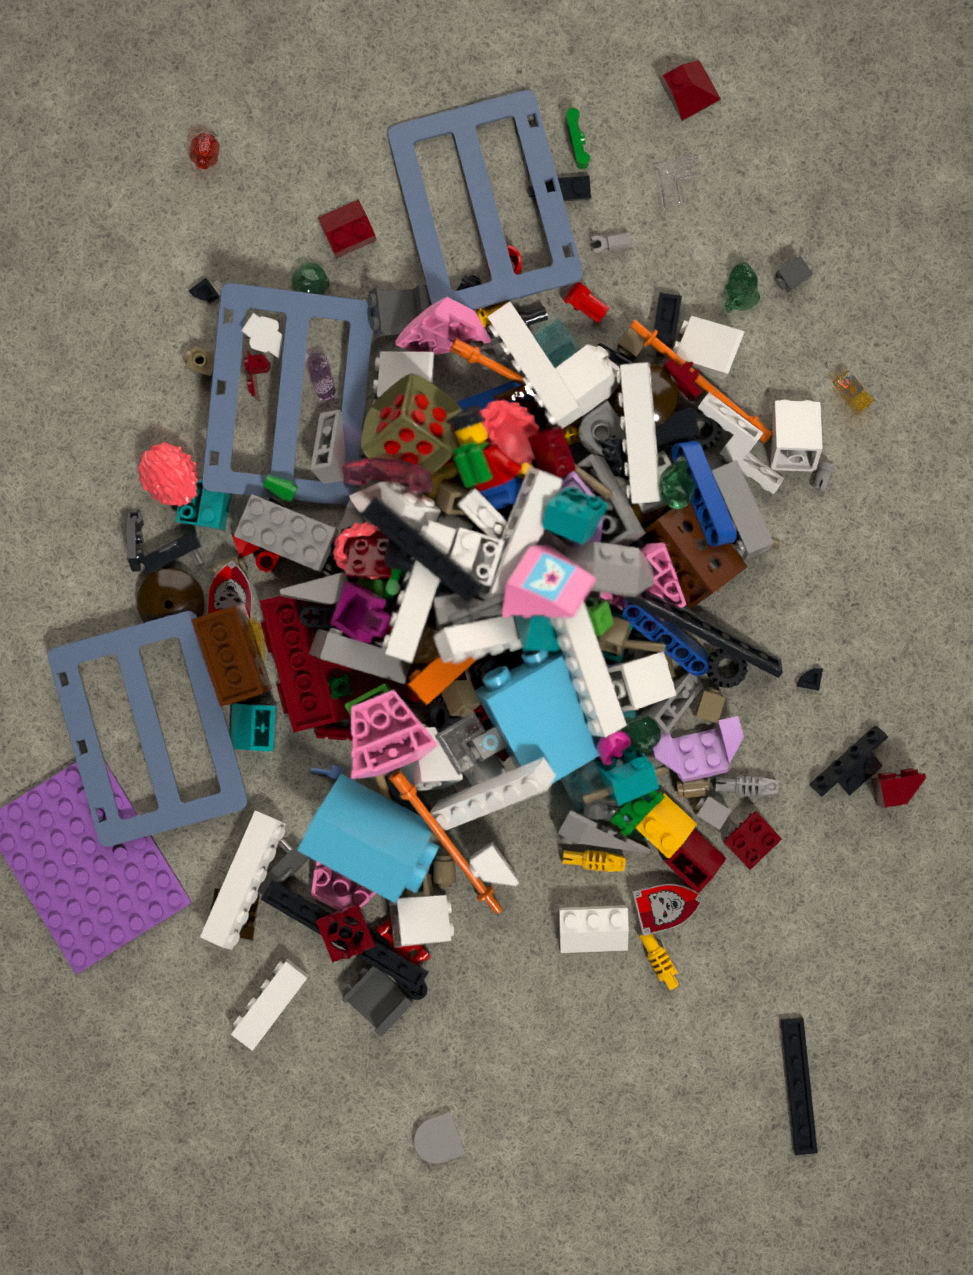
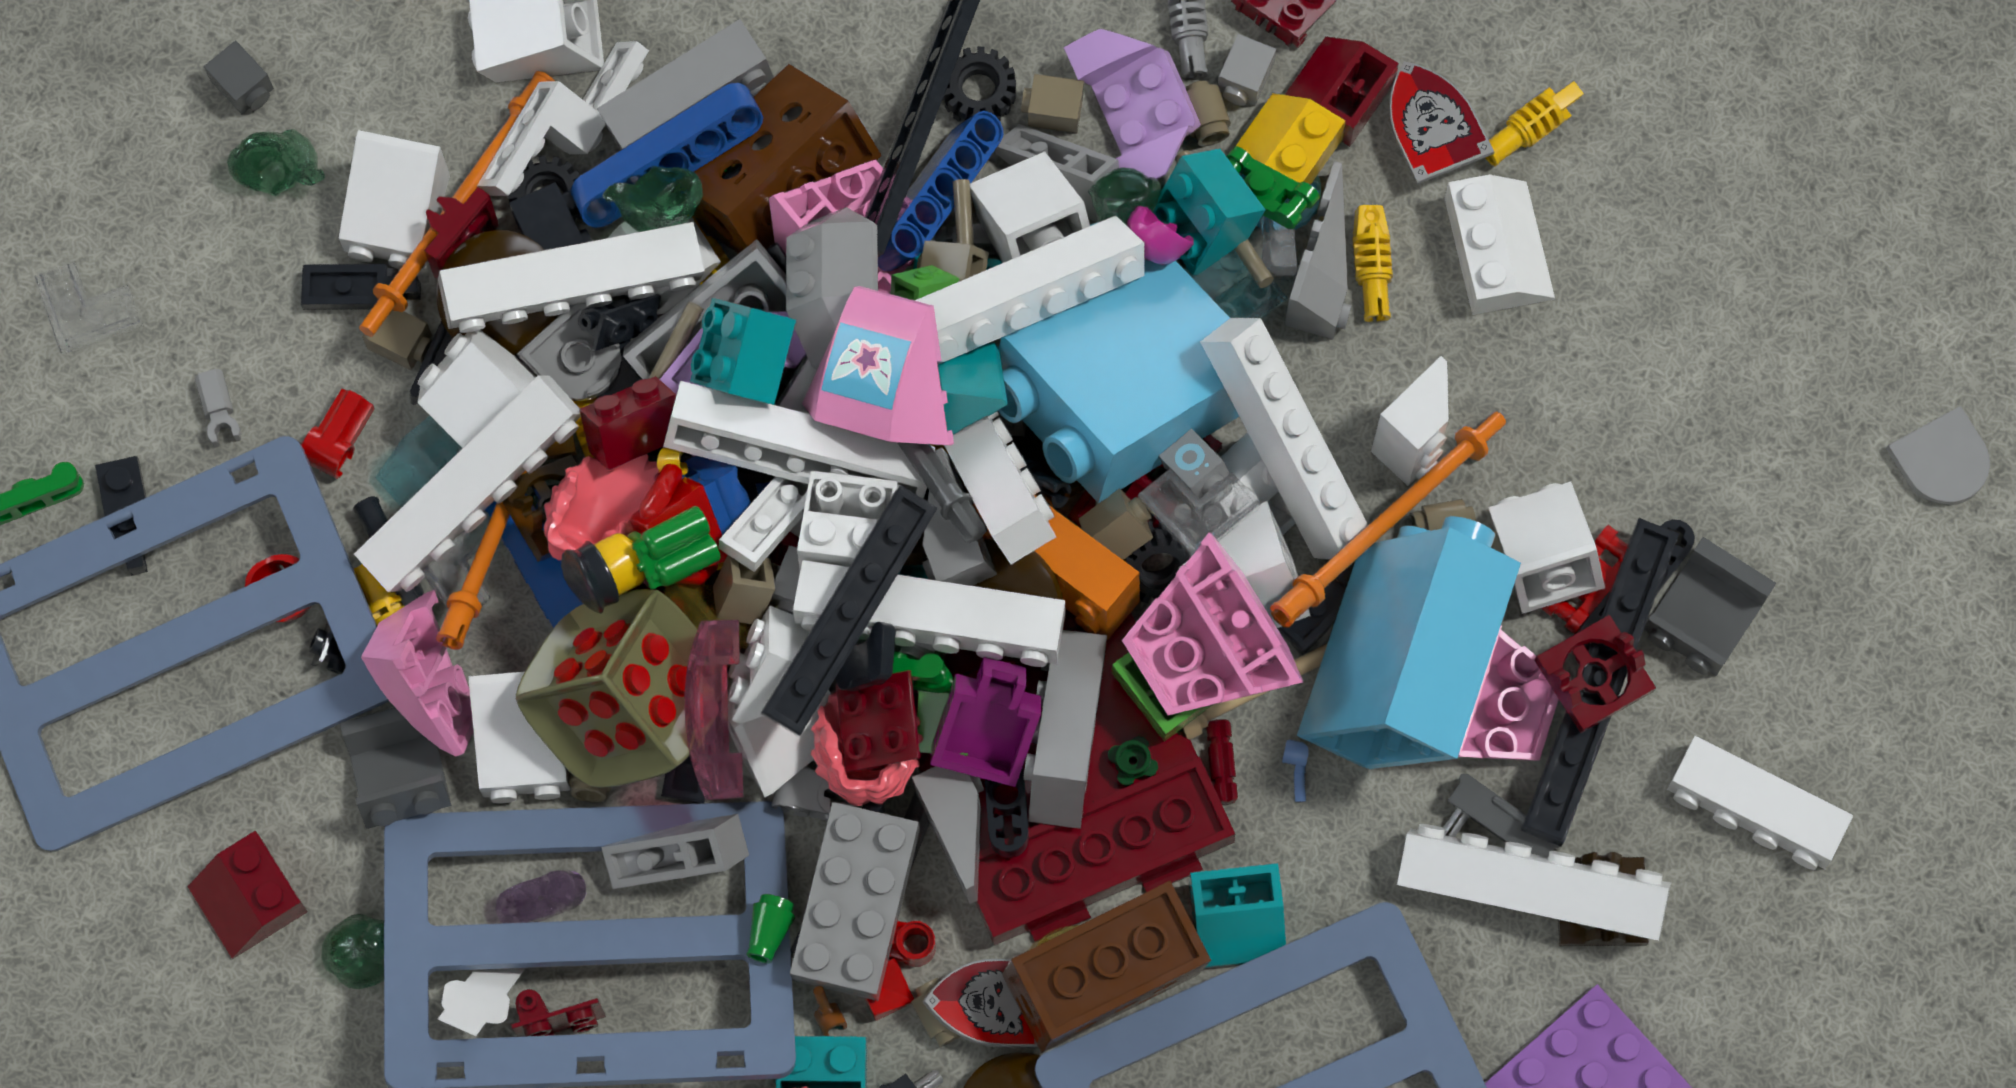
camera: 100 degrees left, 15 degrees down
(237, 512) = (828, 1014): none -> dark orange hand

